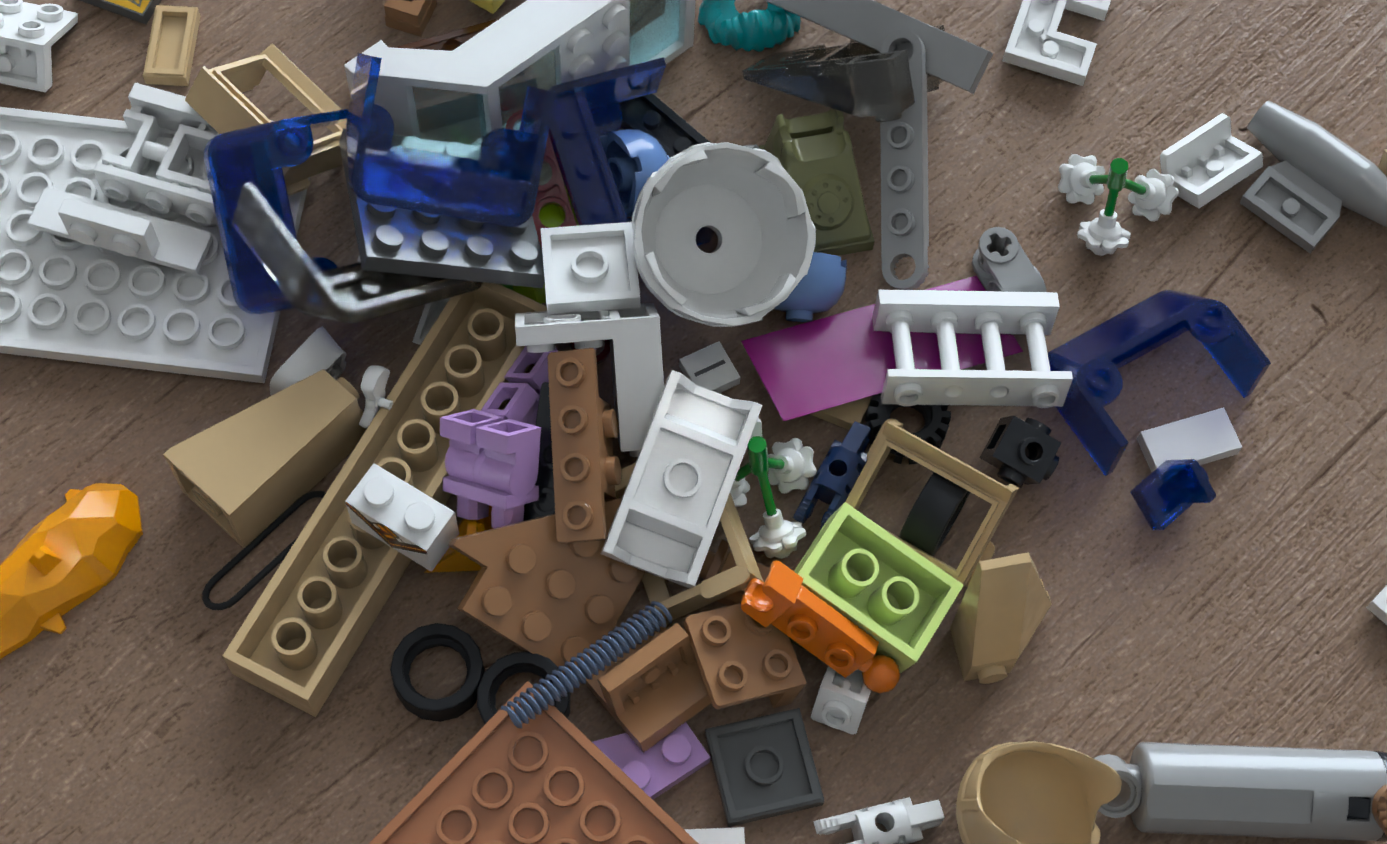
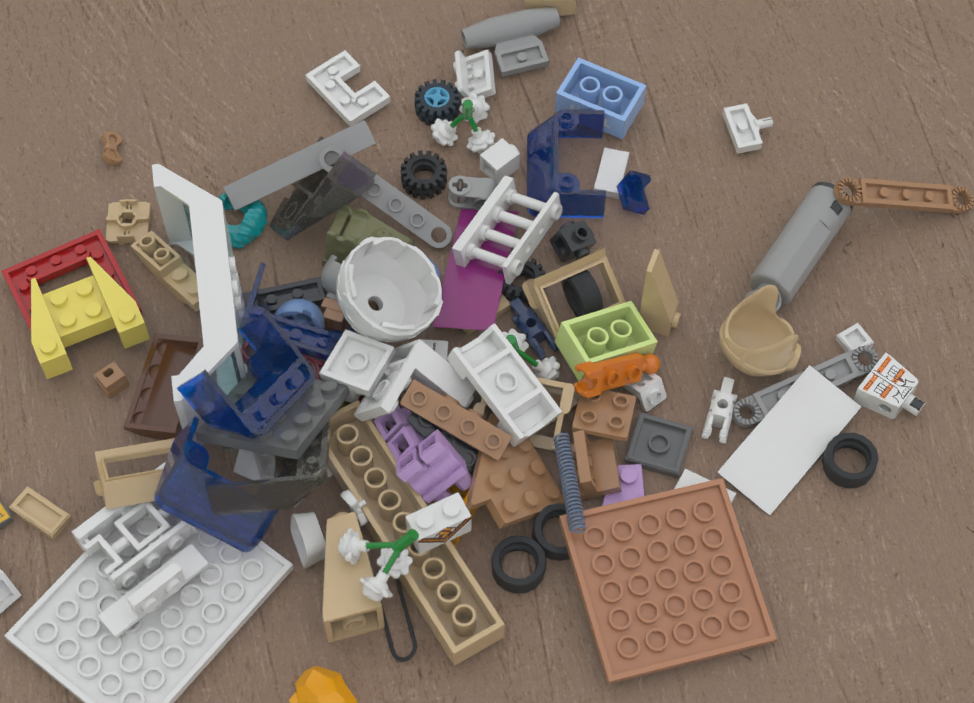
camera: 55 degrees left, 5 degrees down
(308, 489) = (392, 560): none -> white plant
(997, 173) = (427, 186): none -> black tyre
(1089, 278) = (499, 160): none -> white brick
(1131, 130) = (428, 98): none -> black wheel
(1310, 349) = (600, 89): none -> light blue brick

